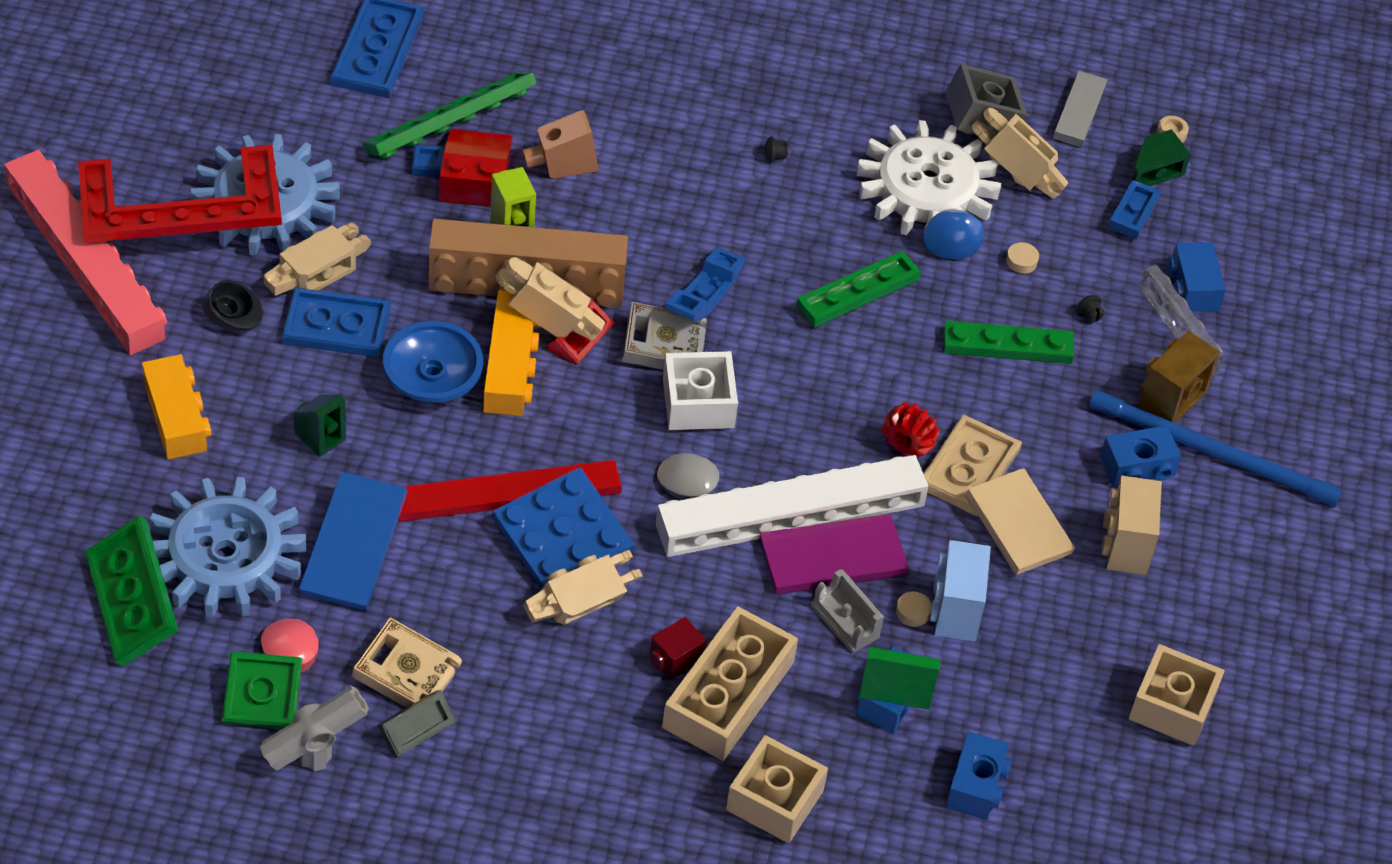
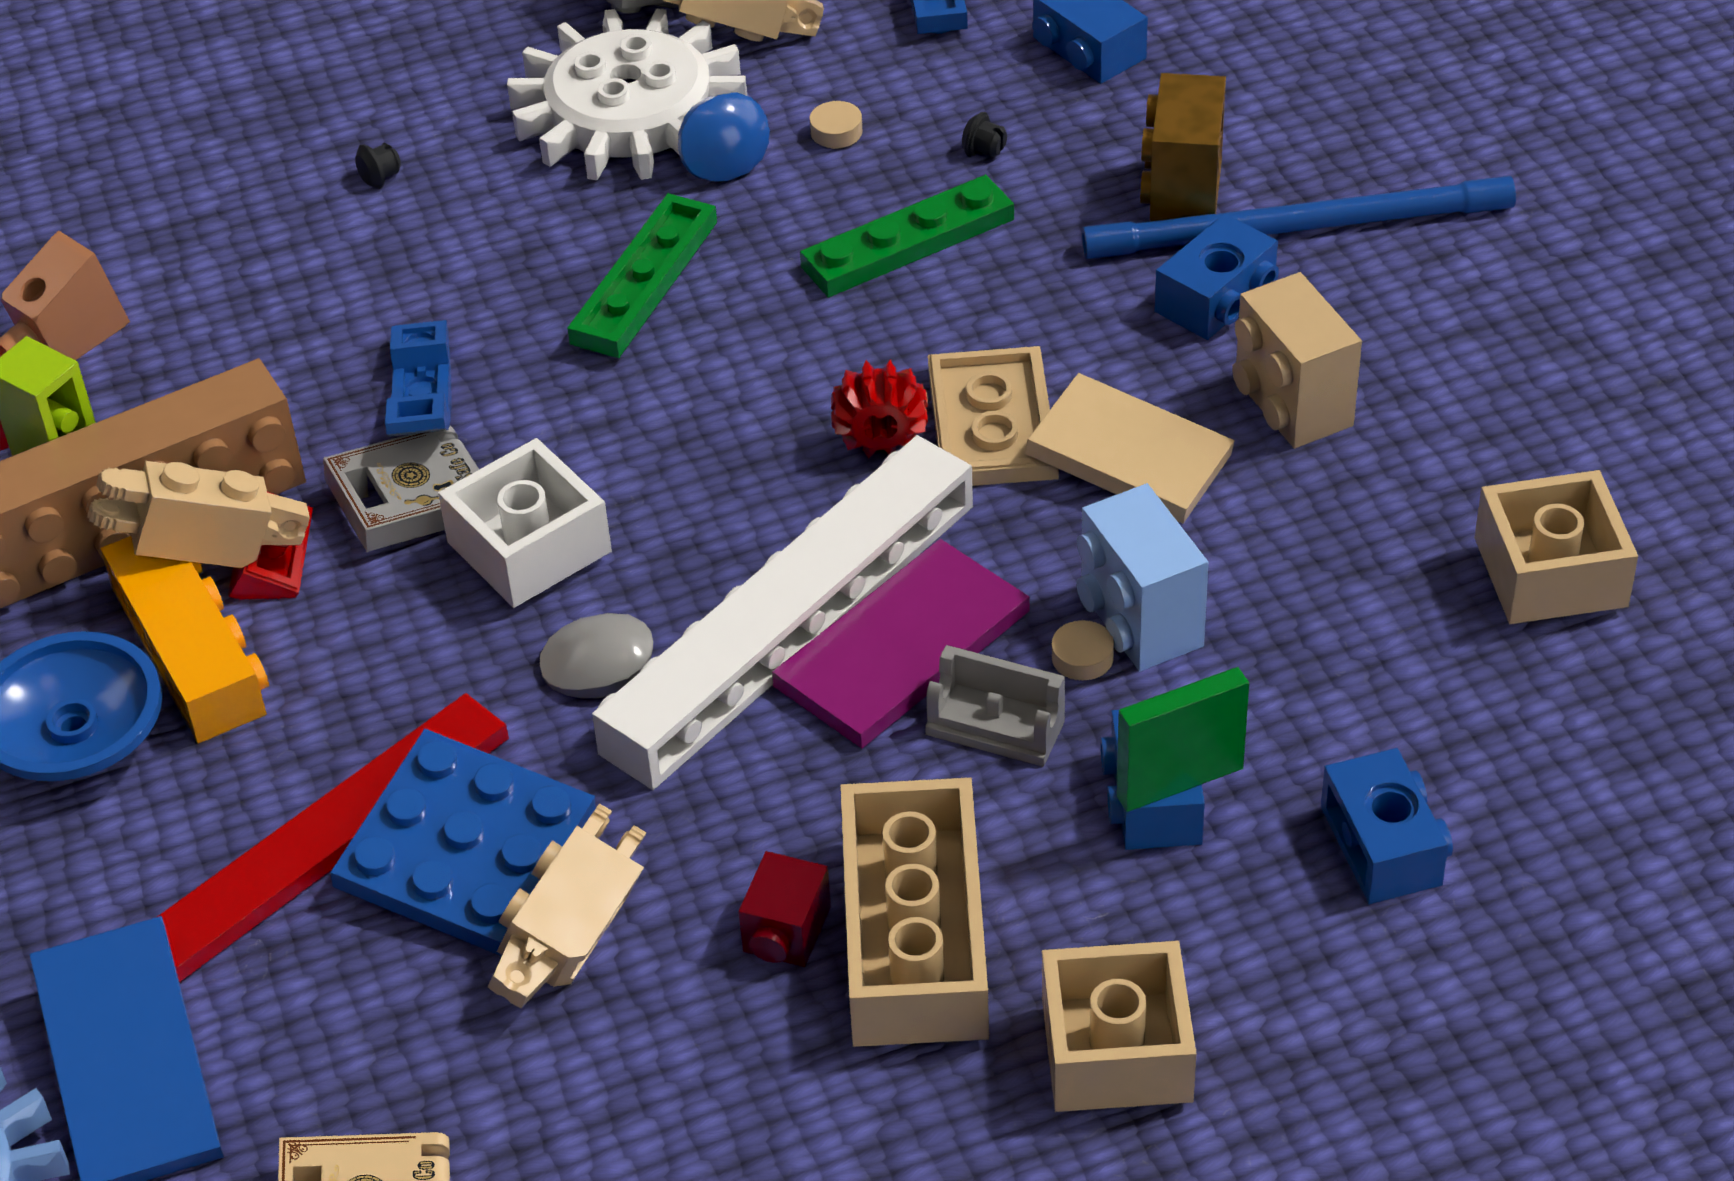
camera: 25 degrees left, 5 degrees down
(1174, 309) = (1087, 78): clear plate -> none

